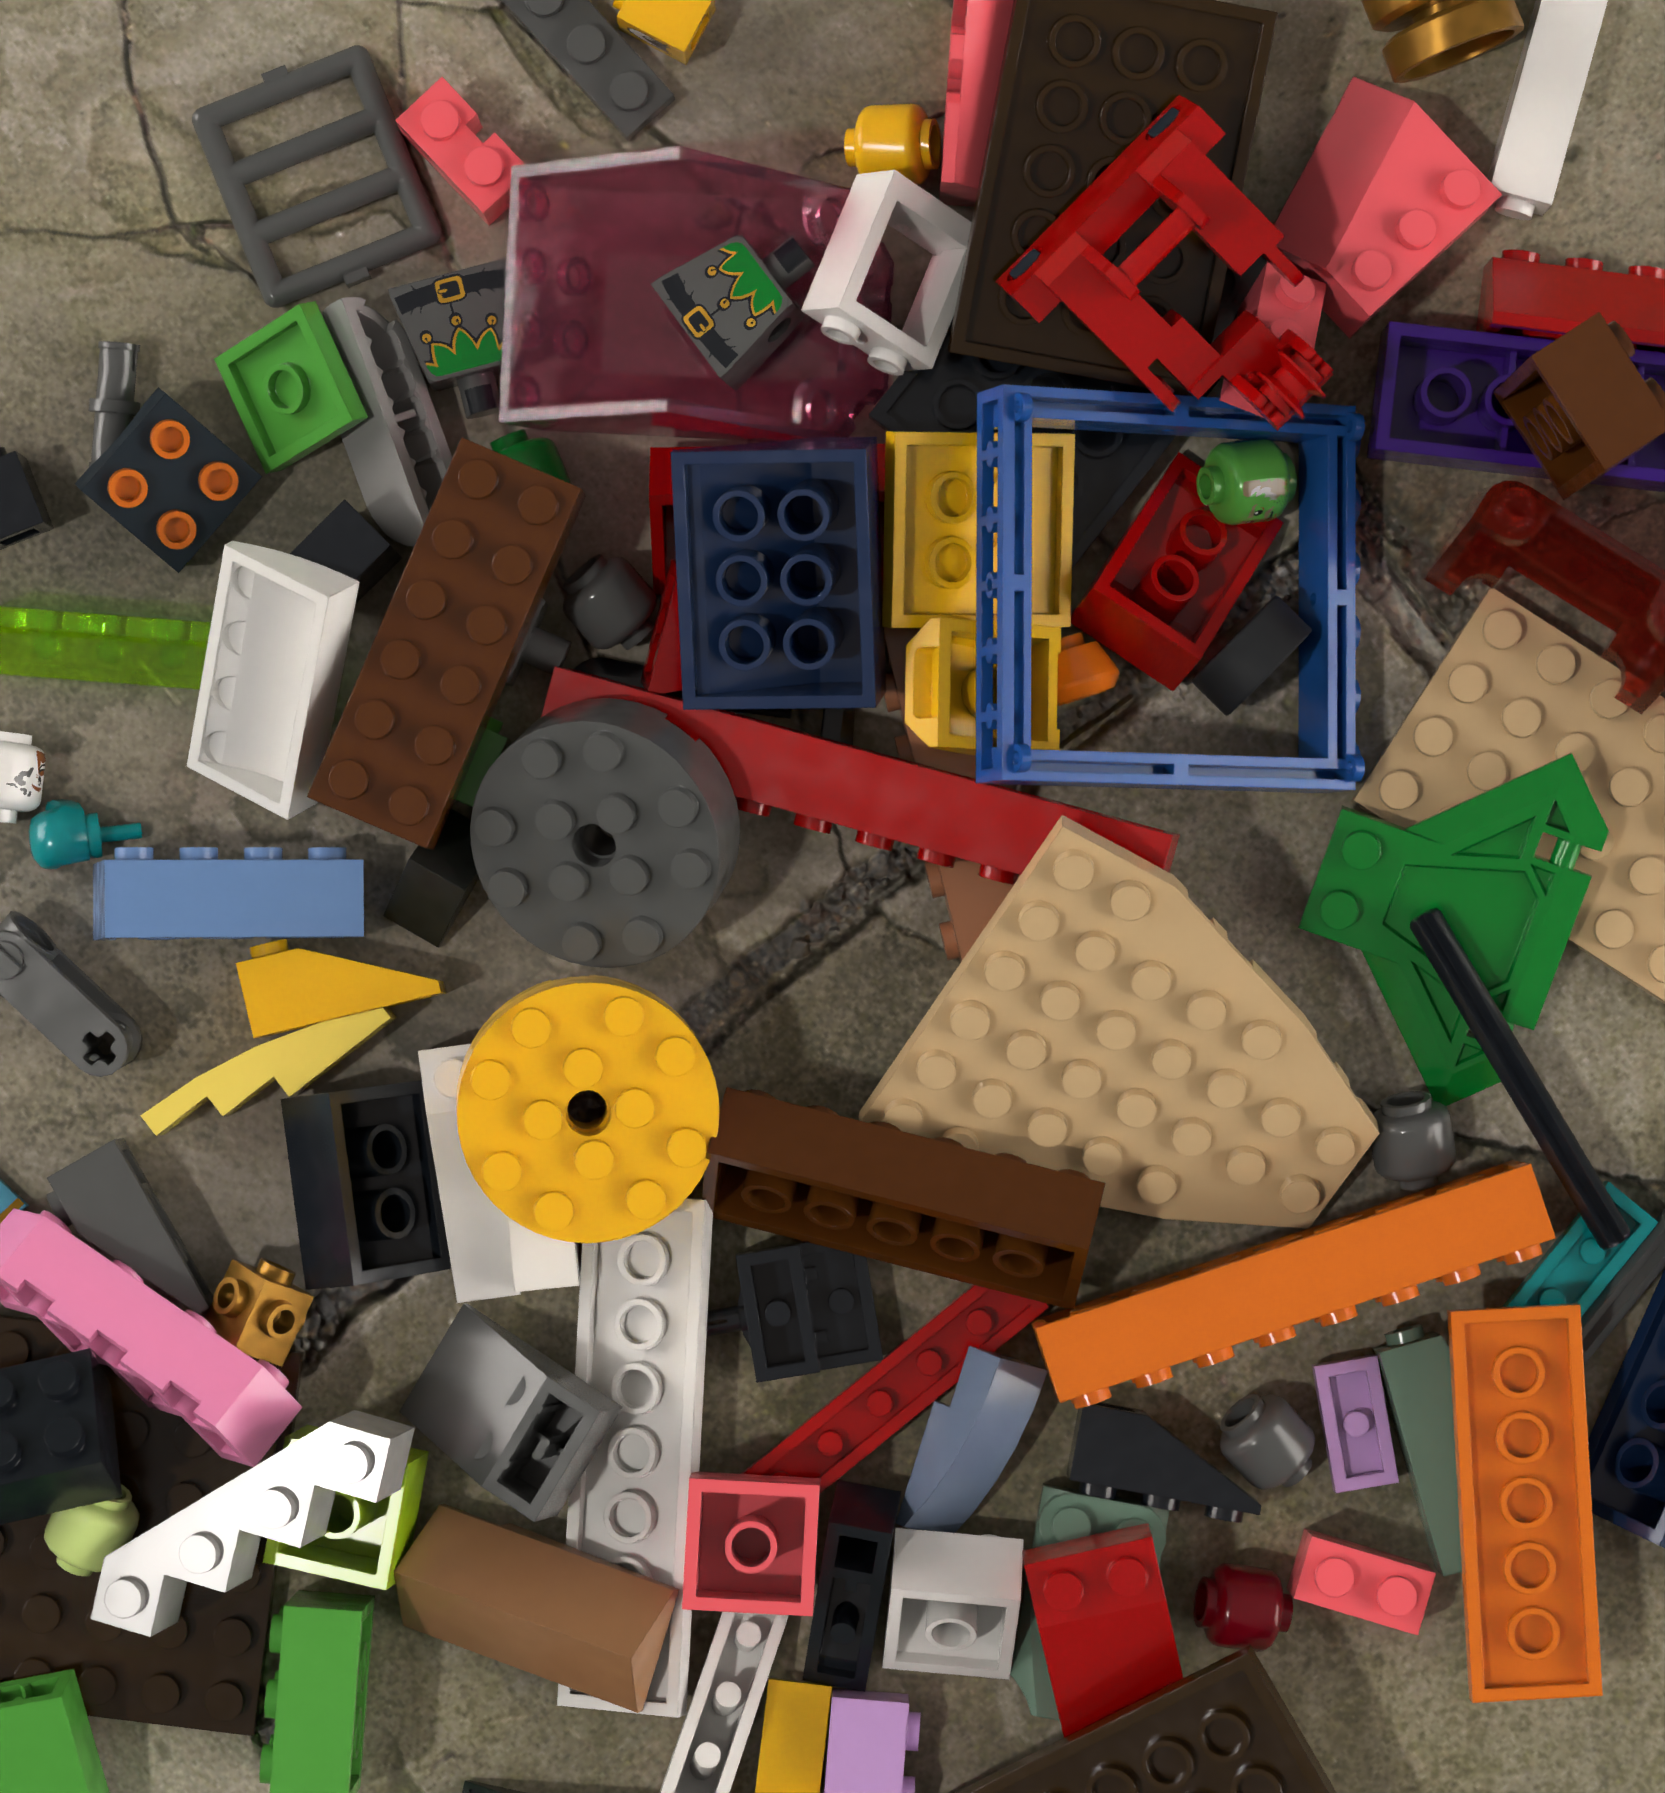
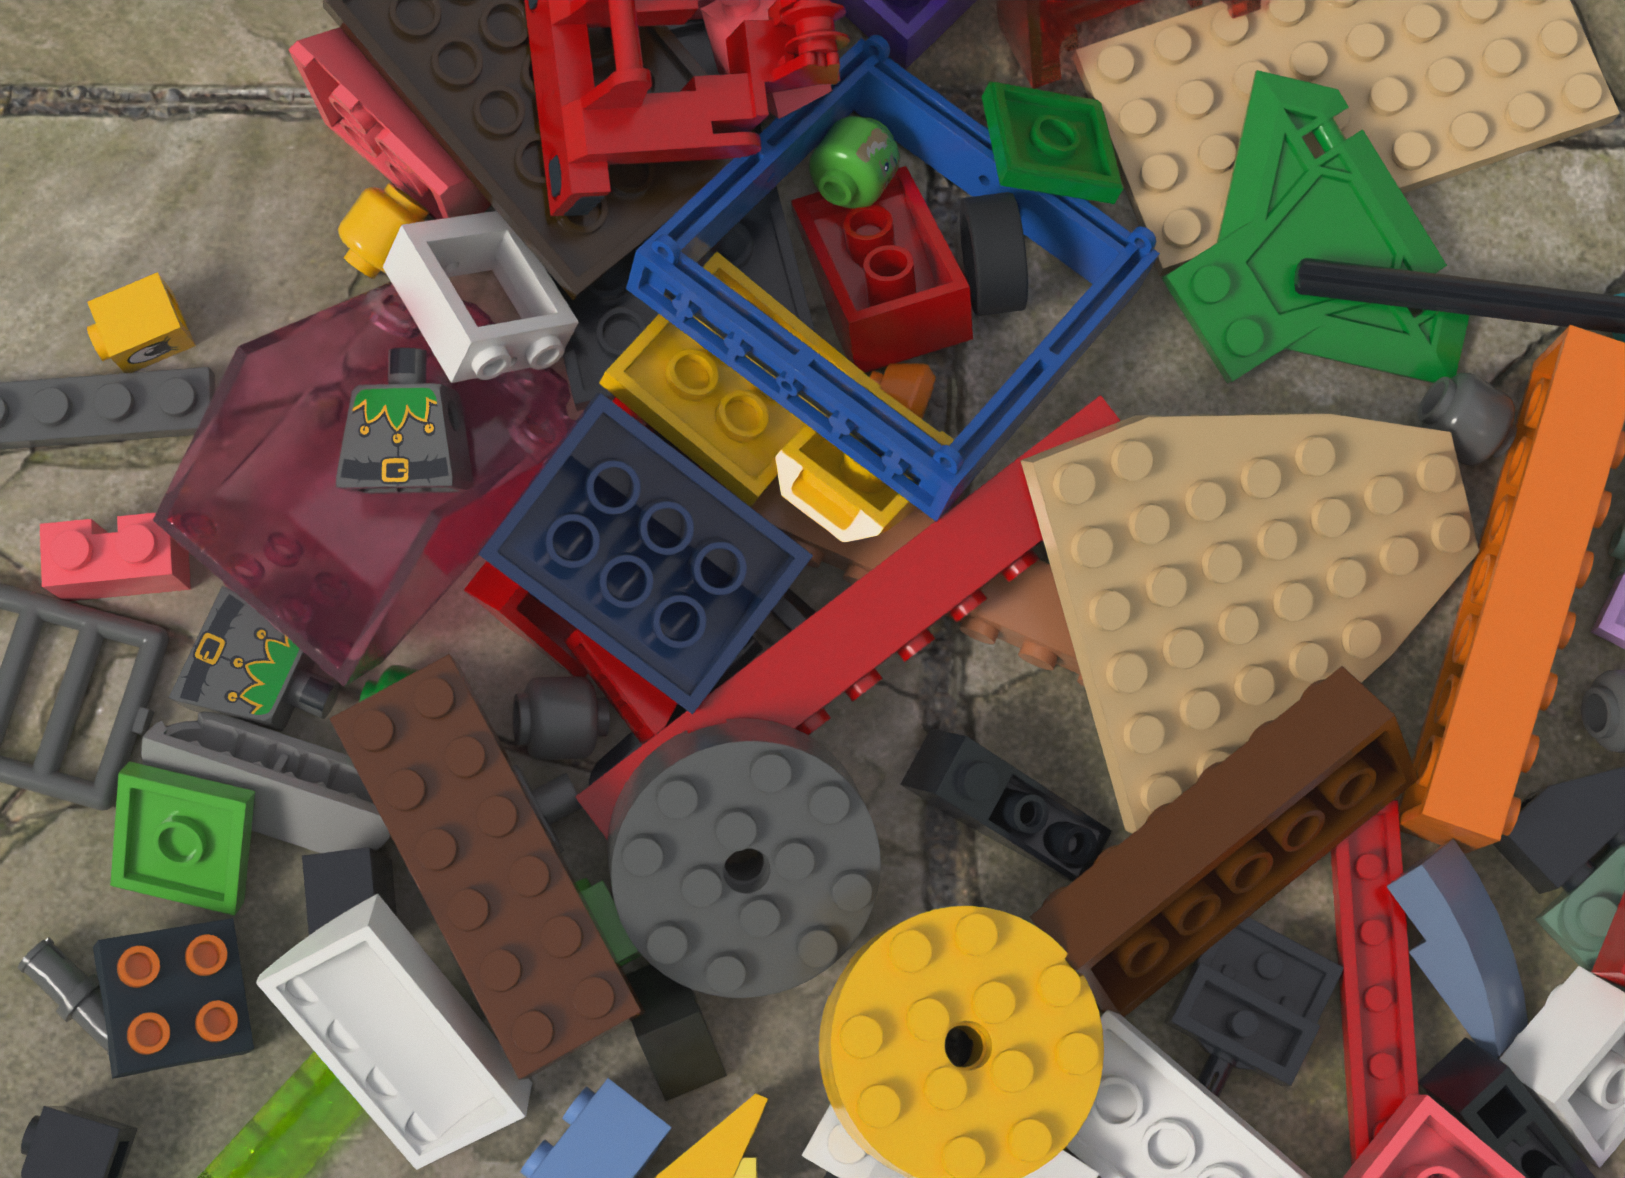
camera: 55 degrees left, 10 degrees down
(810, 1004) = (1004, 804): none -> black slope
(1385, 630) = (1051, 143): none -> green tile

